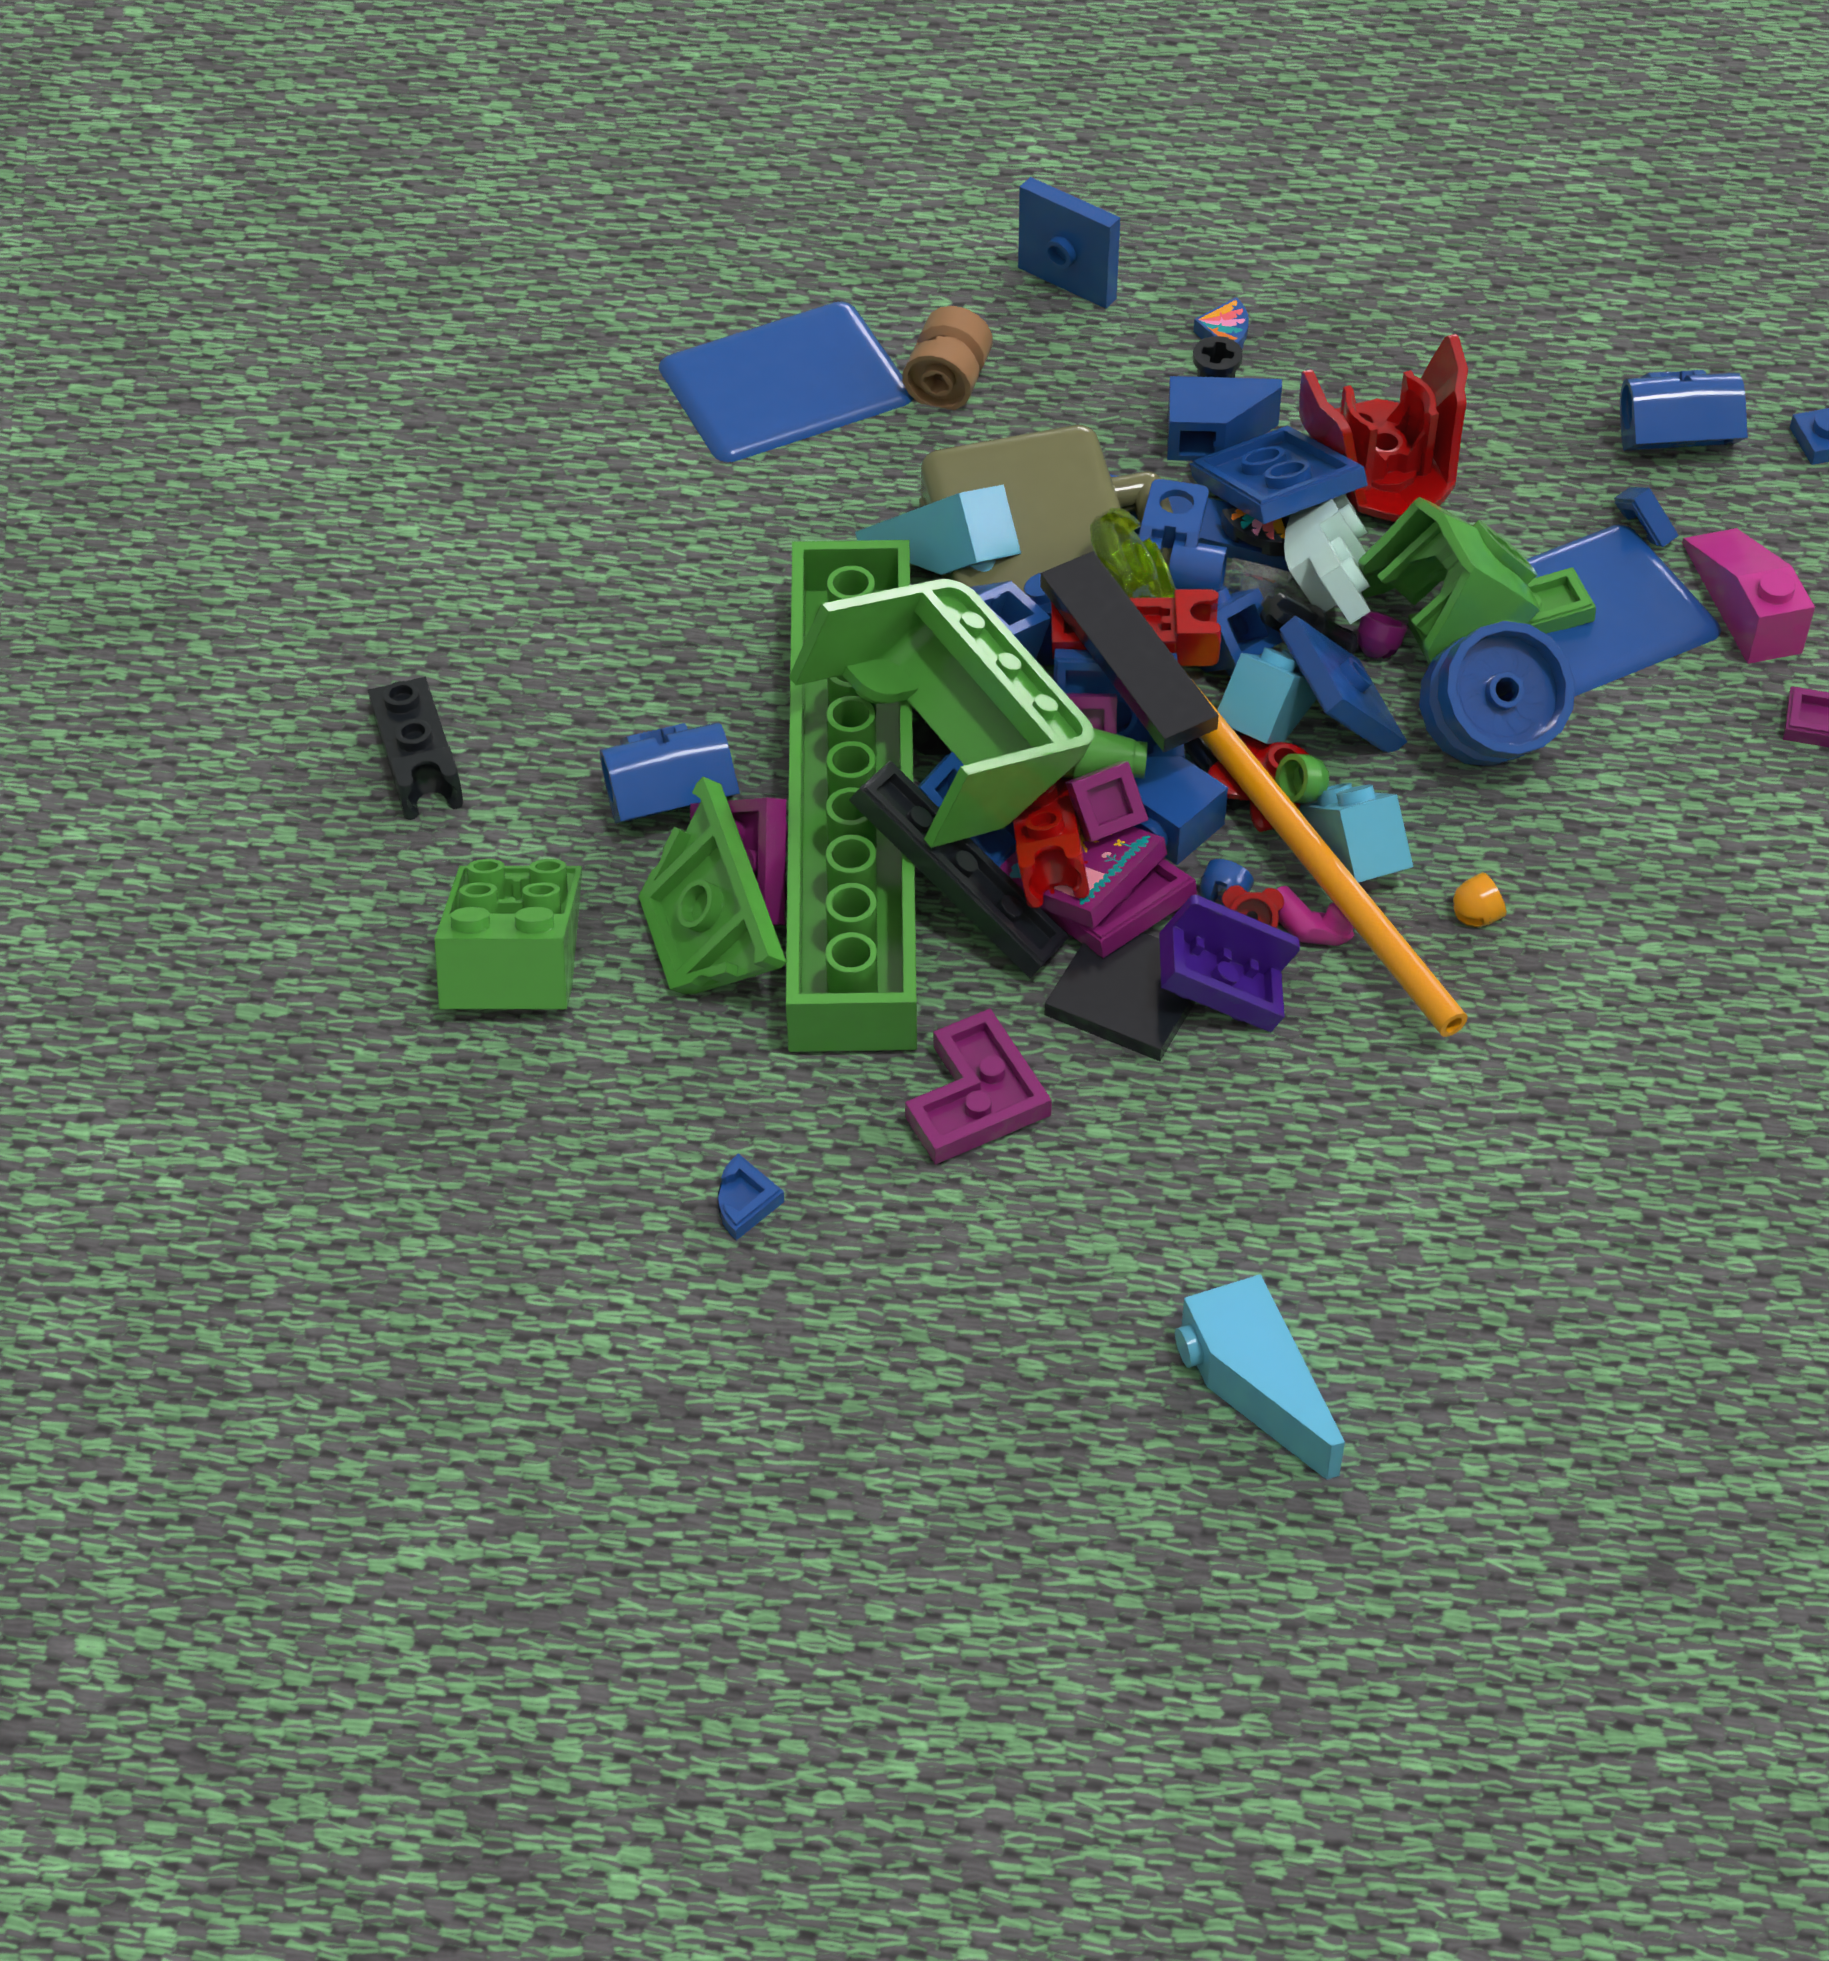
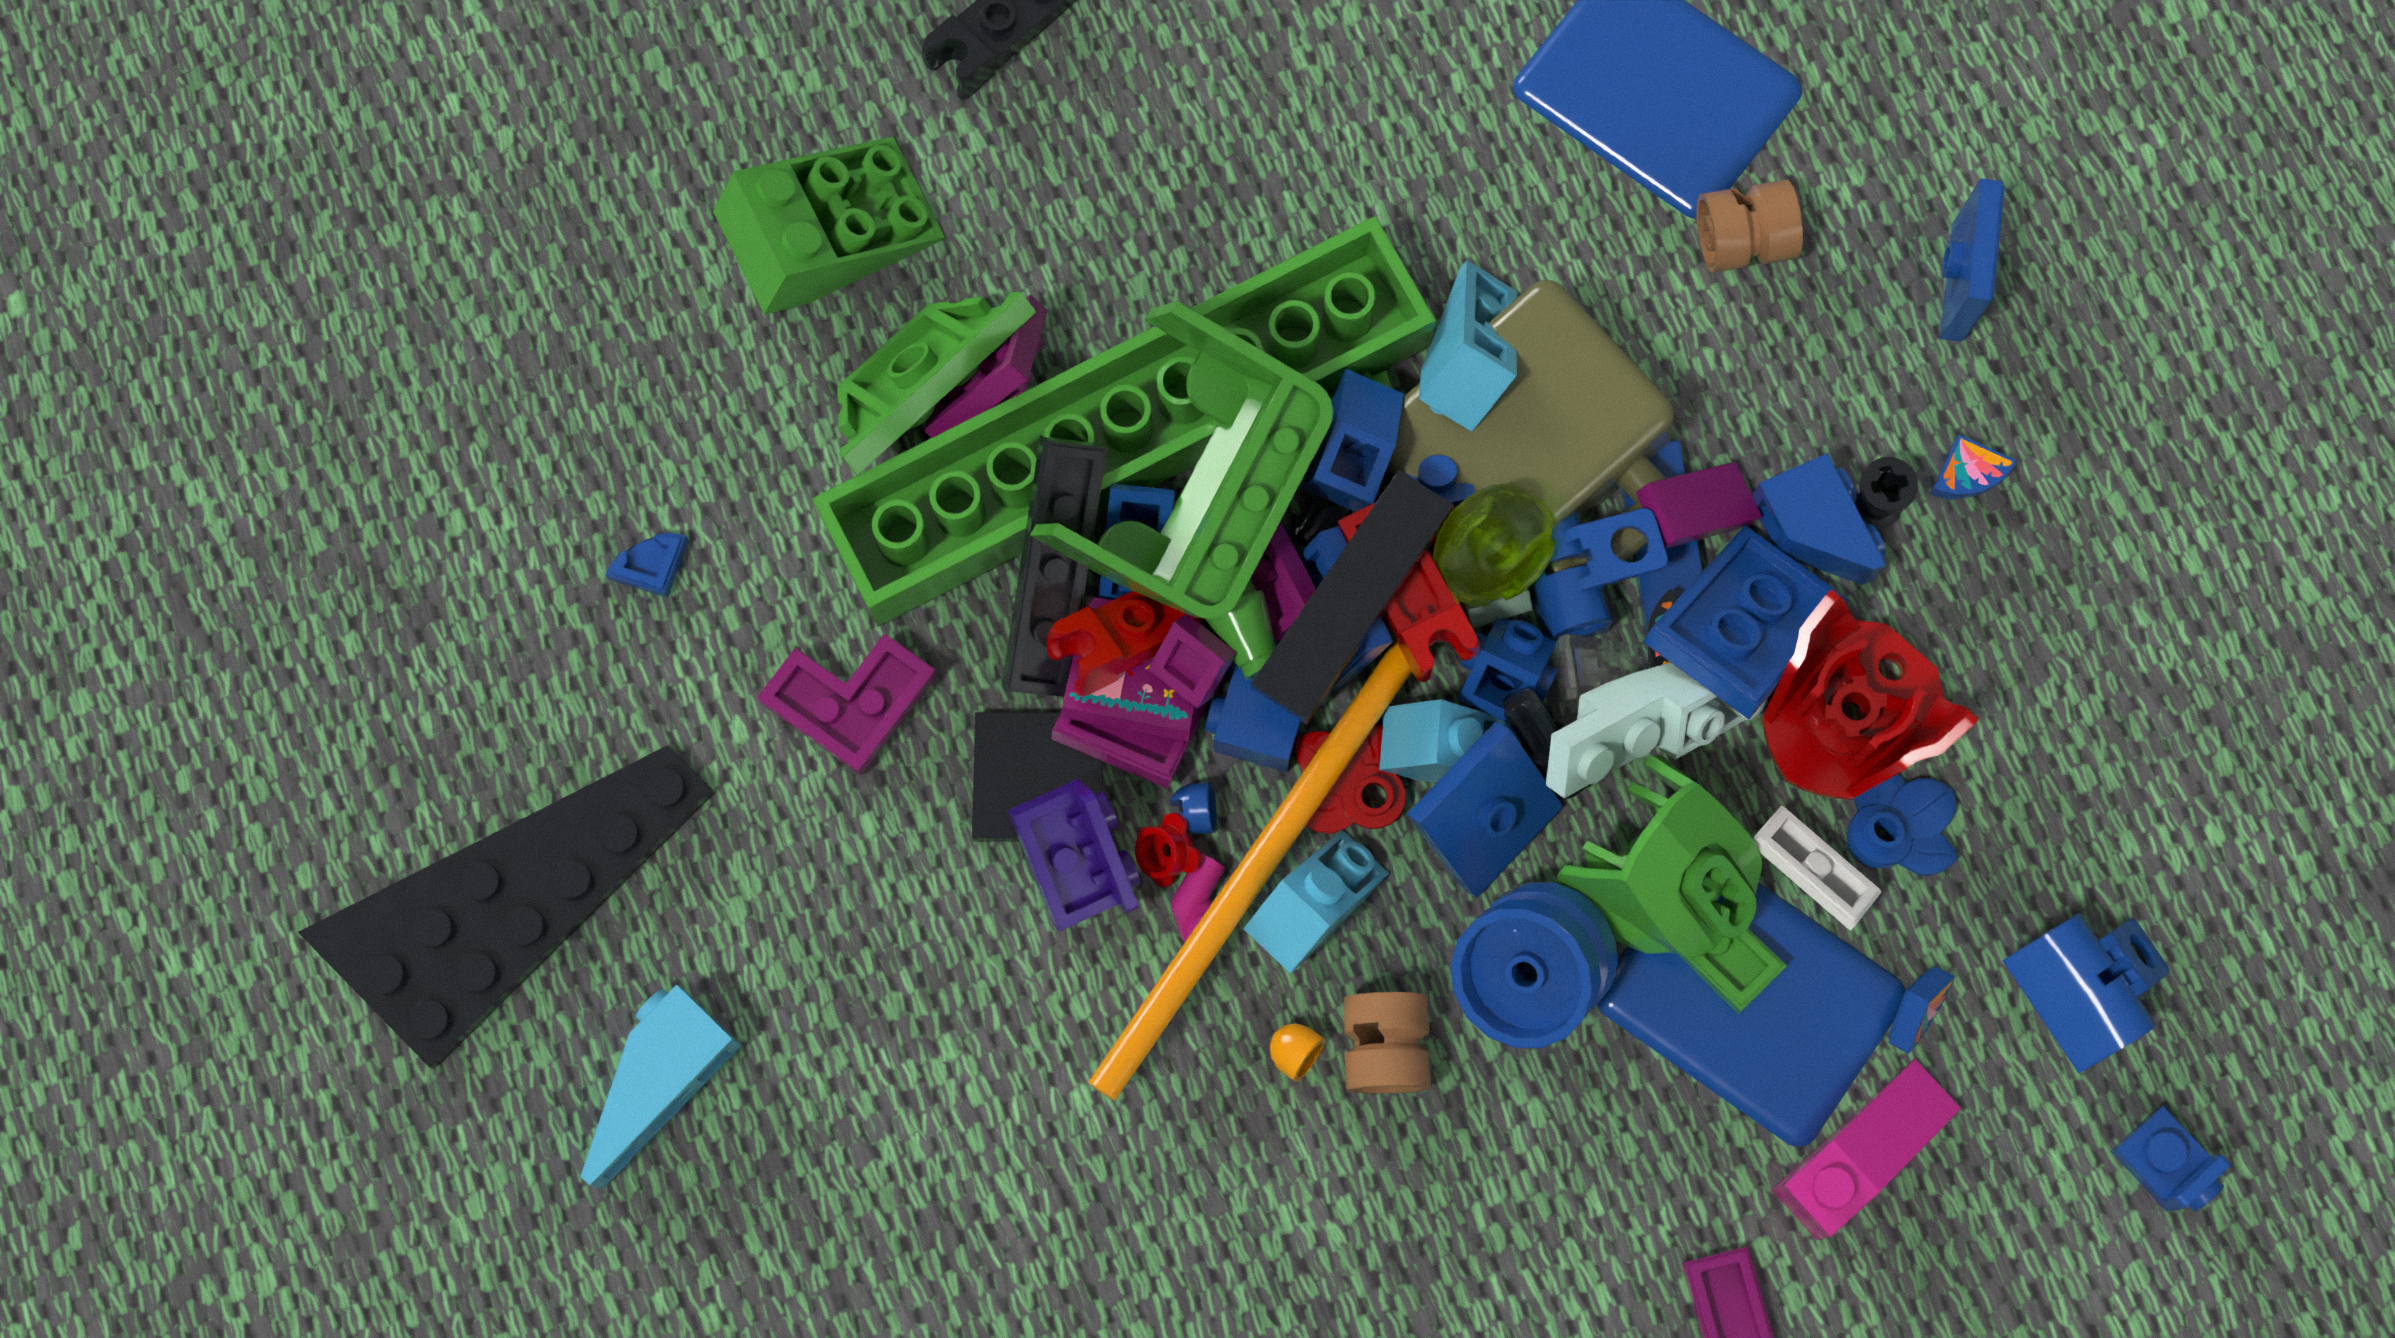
camera: 65 degrees right, 25 degrees up
(661, 767) = (1065, 251): blue piece -> none
(1017, 1470) = (478, 923): none -> black wing
(1159, 464) = (1700, 504): none -> magenta tile
(1302, 777) = (1346, 824): bright green hinge -> none
(1380, 635) = (1601, 812): magenta hinge -> none
(1493, 472) = (1912, 818): none -> blue plate
(1520, 516) = (1816, 867): none -> white slope
(1528, 838) = (1387, 1042): none -> medium nougat wheel

